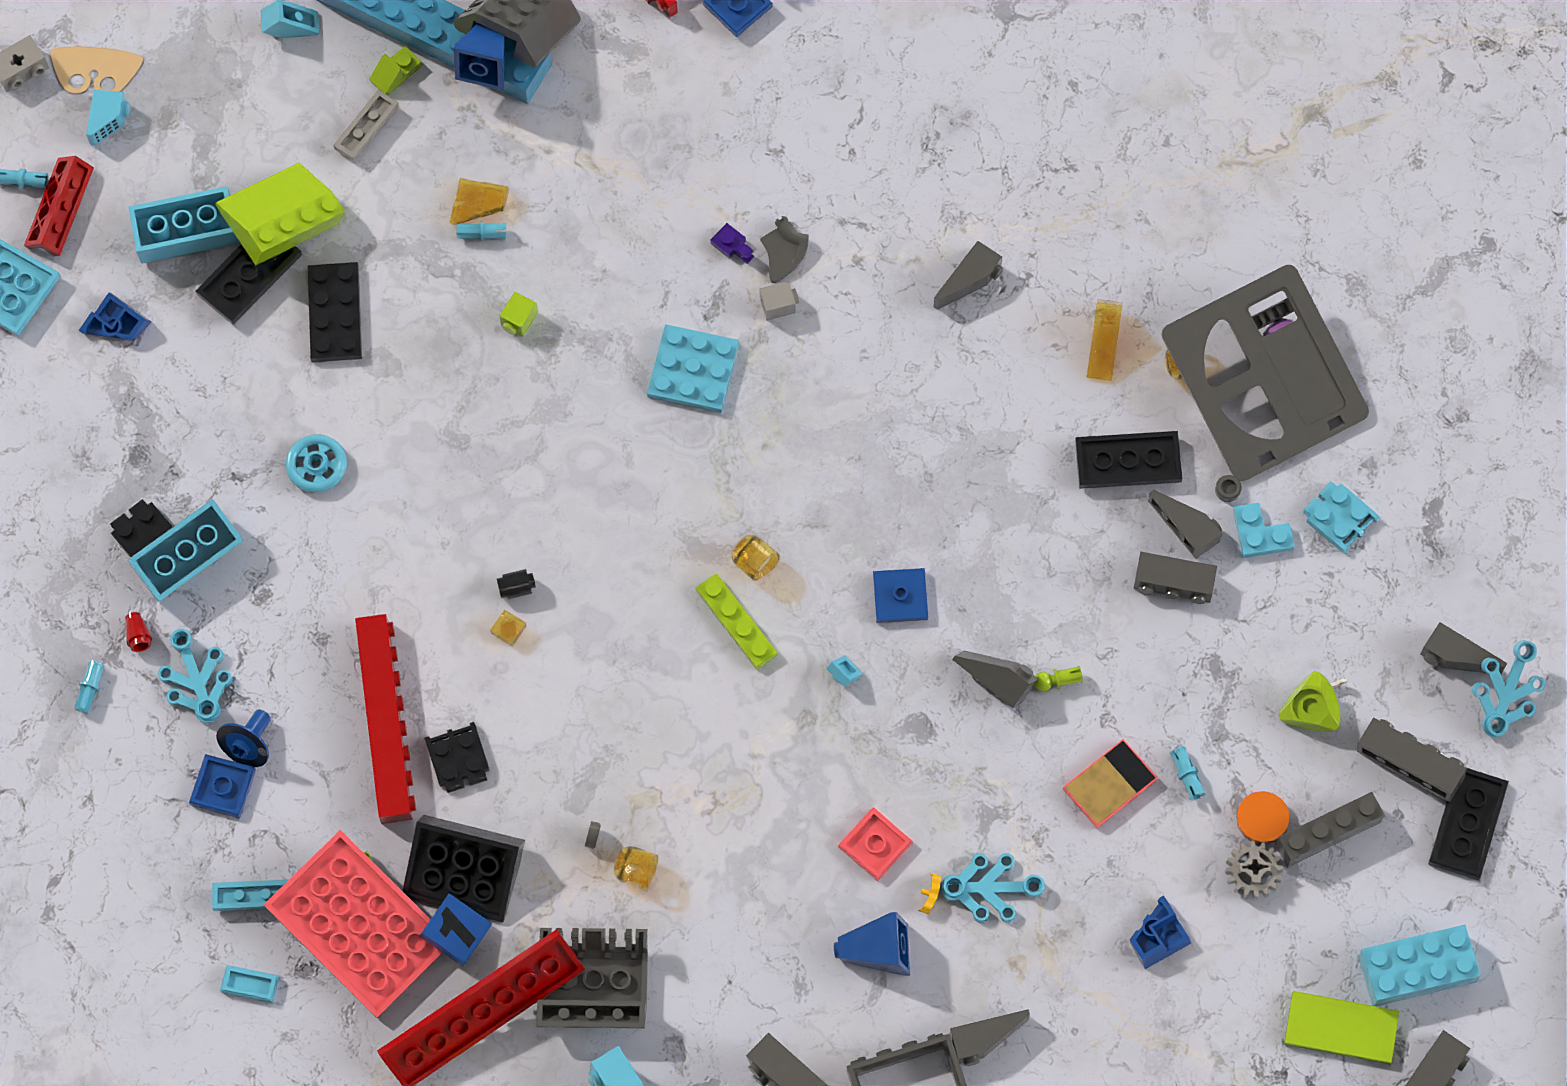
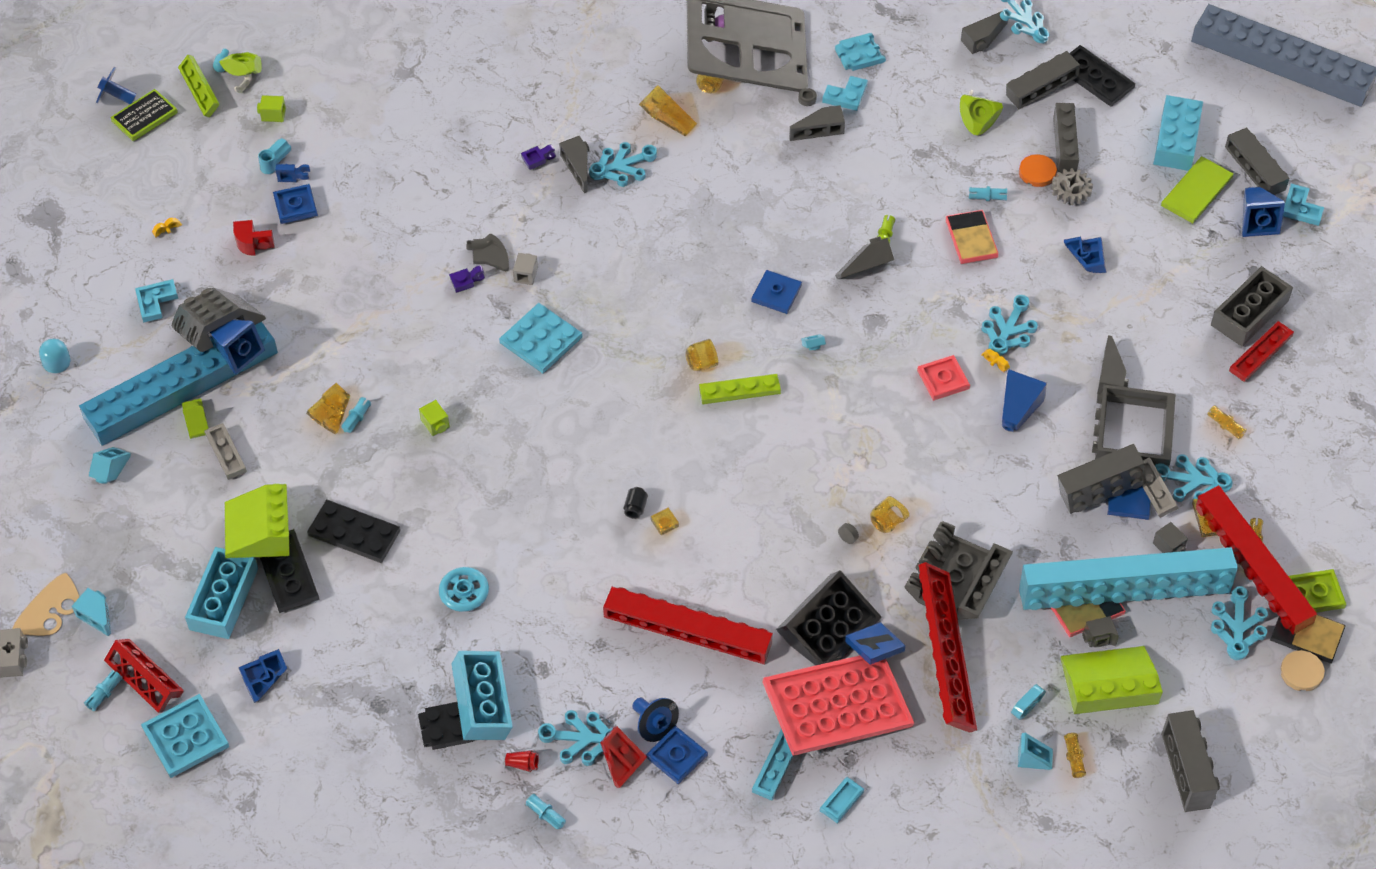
camera: 65 degrees left, 15 degrees down
(187, 729) = (621, 756): none -> red wing
(458, 758) = (744, 593): black plate -> none
(951, 225) = (536, 157): none -> dark purple plate
(996, 324) = (600, 170): none -> medium azure plant
(1128, 459) = (757, 135): black plate -> none
(1175, 578) = (853, 144): dark grey brick -> none

